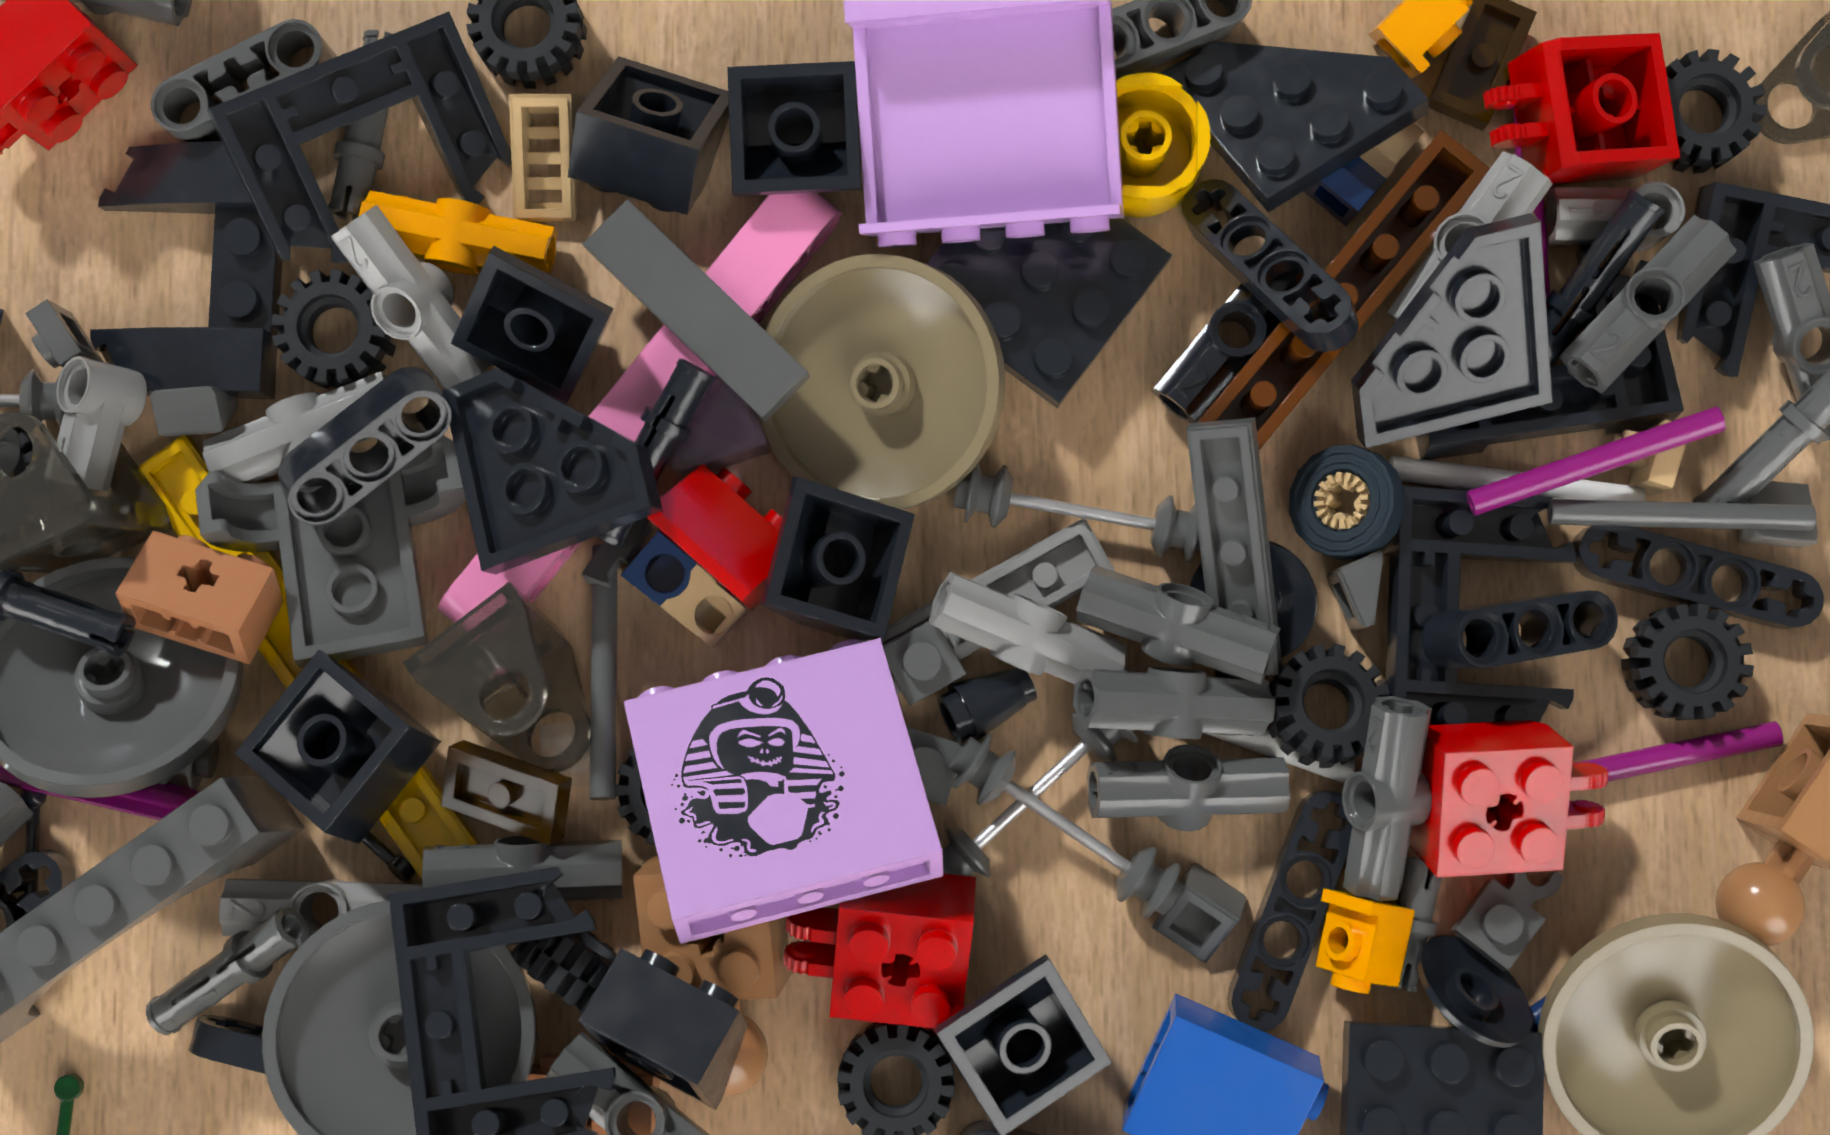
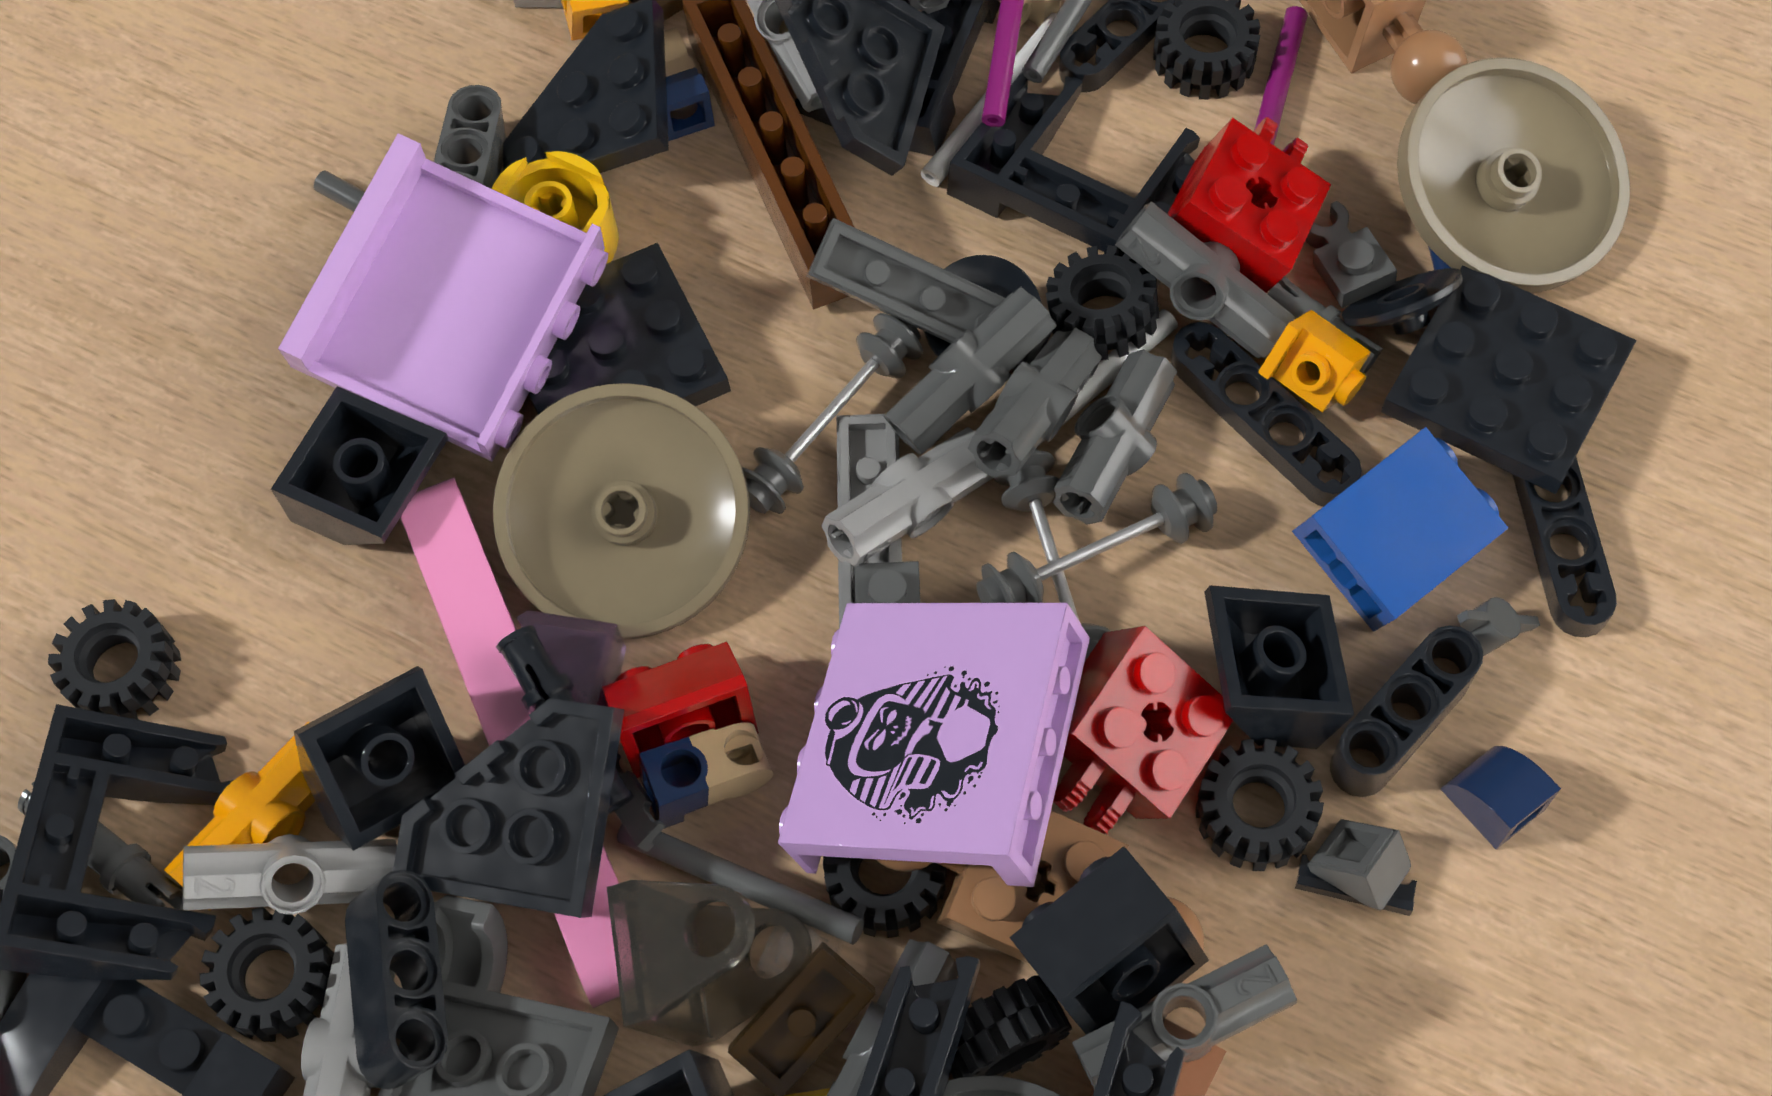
camera: 60 degrees left, 20 degrees down
(521, 132) = (196, 676): tan slope -> none
(648, 135) = (286, 604): black slope -> none
(696, 310) = (461, 621): dark grey tile -> none
(837, 561) = (761, 608): black slope -> none
(985, 702) = (951, 564): black cone -> none
(1202, 913) = (1237, 487): dark grey slope -> none
(1210, 364) = (759, 256): black piece -> none
(1275, 257) = (707, 155): black beam -> none
(1316, 497) = (917, 191): black bush -> none
(1358, 589) = (1020, 237): dark grey slope -> none
(1544, 625) = (1115, 132): black beam -> none

